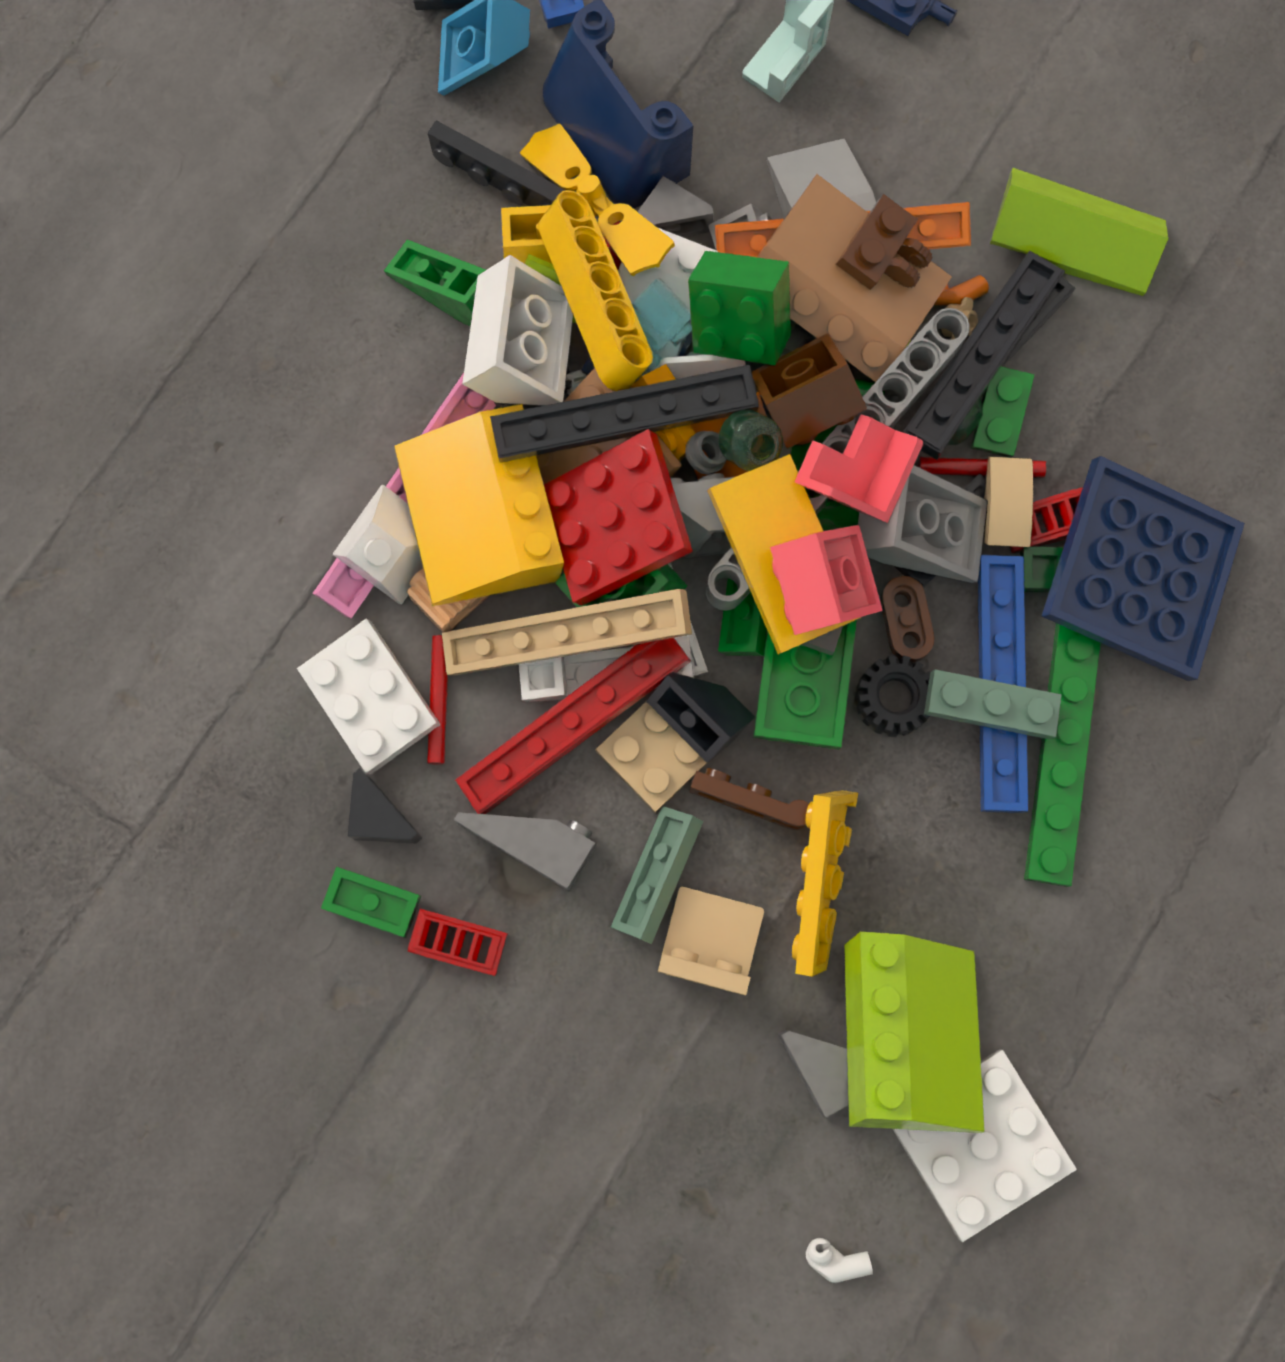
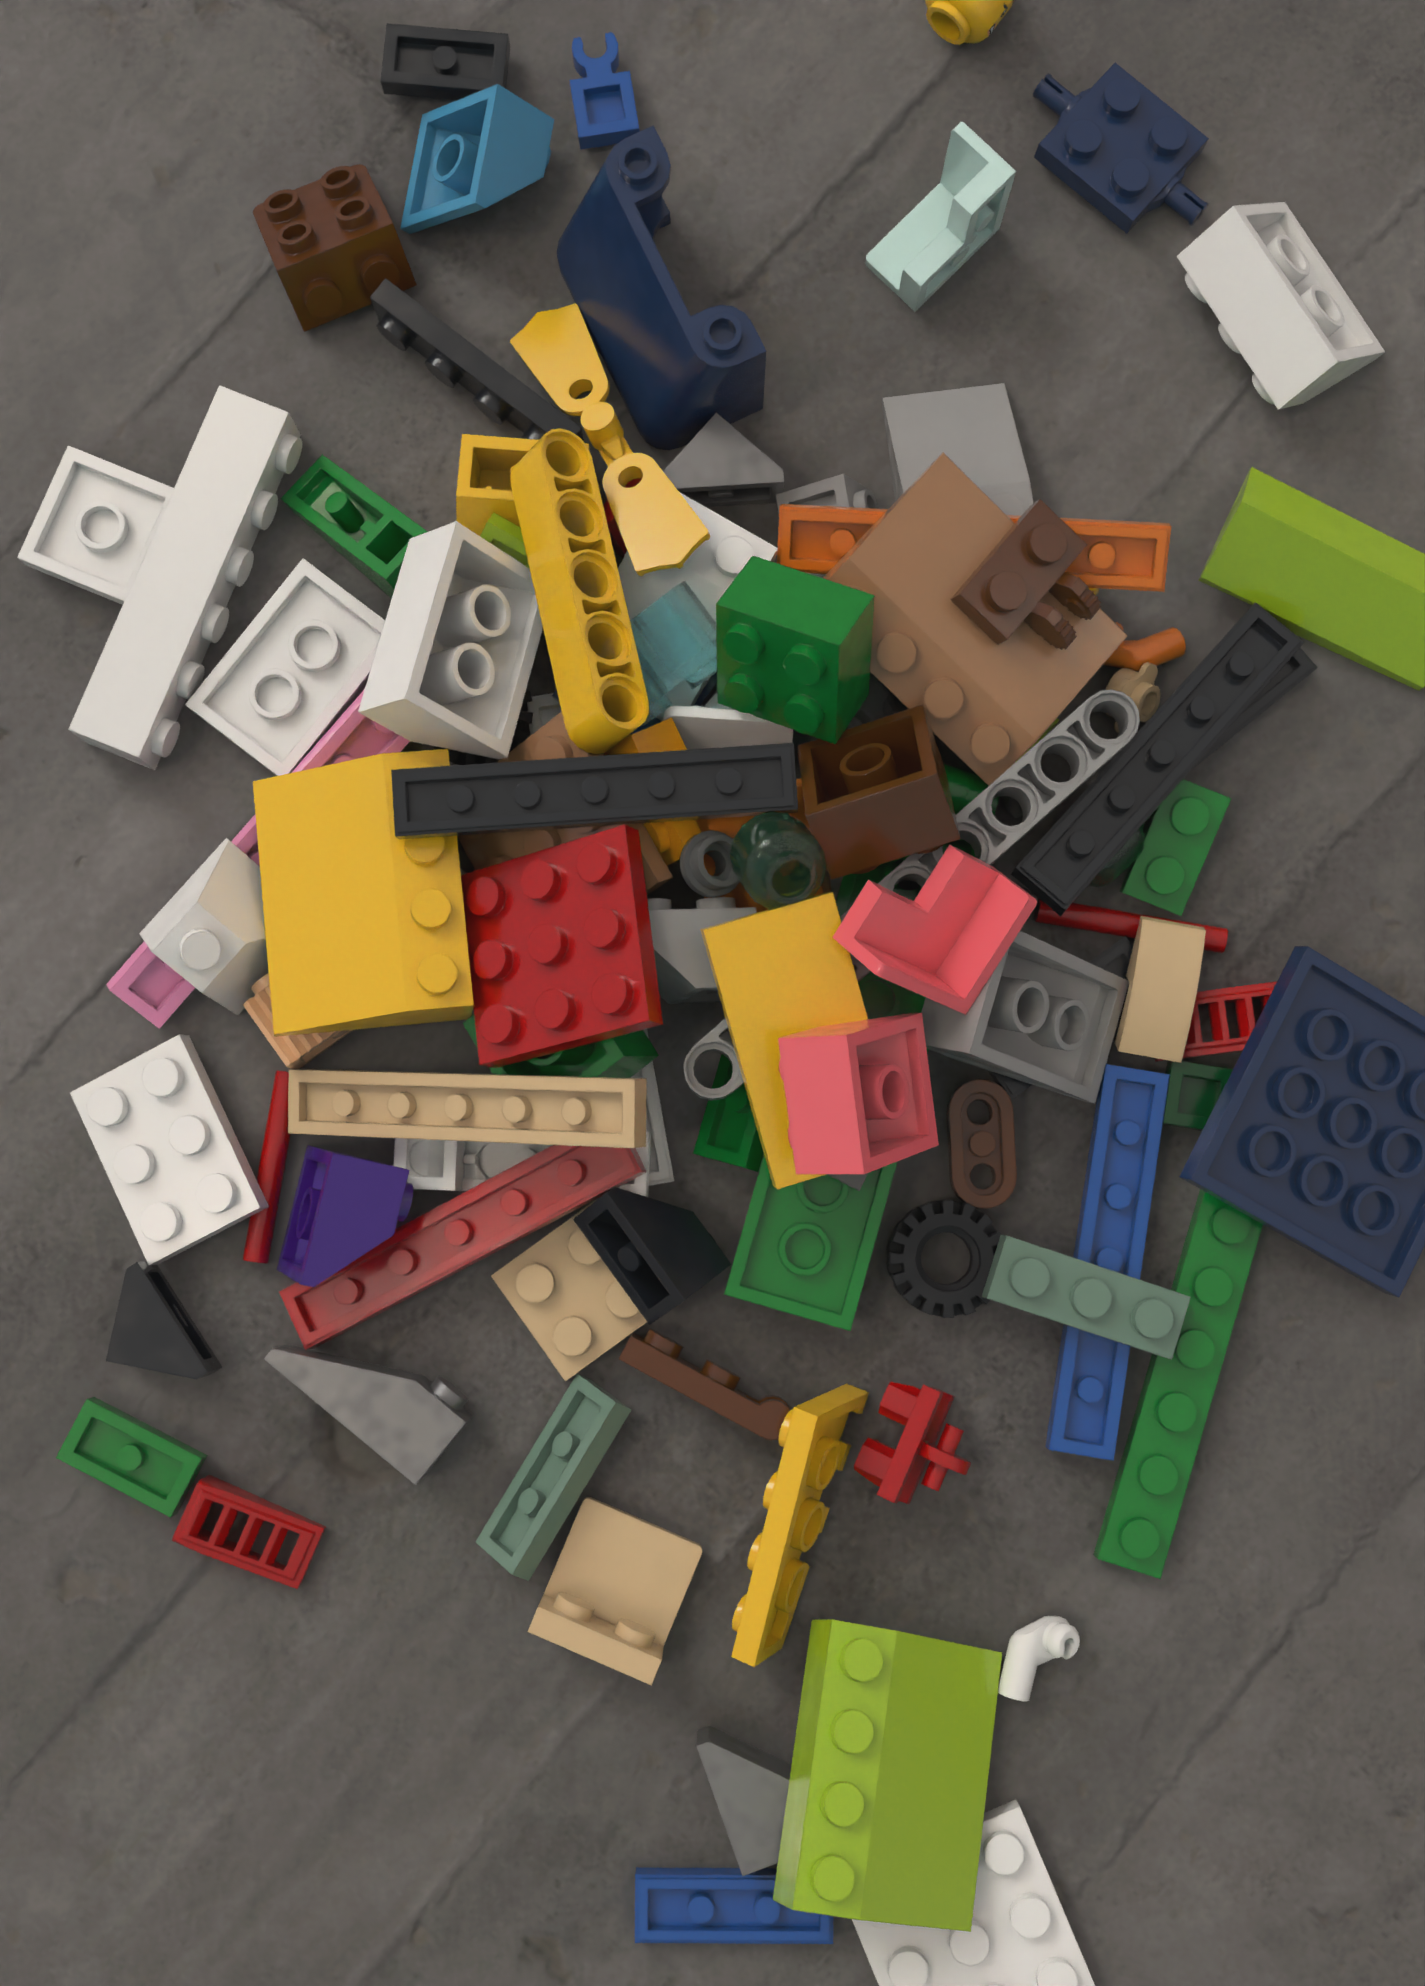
camera: 10 degrees right, 5 degrees up
(270, 303) = (95, 524): none -> white plate
(331, 328) = (188, 579): none -> white brick
(396, 106) = (332, 244): none -> reddish brown bracket
(408, 376) = (291, 670): none -> white plate
(489, 714) = (340, 1213): none -> dark purple slope
(818, 1148) = (719, 1908): none -> blue tile
(896, 800) = (901, 1468): none -> red hips
(995, 943) = (1032, 1646): none -> white arm
(1011, 65) = (1278, 303): none -> white slope

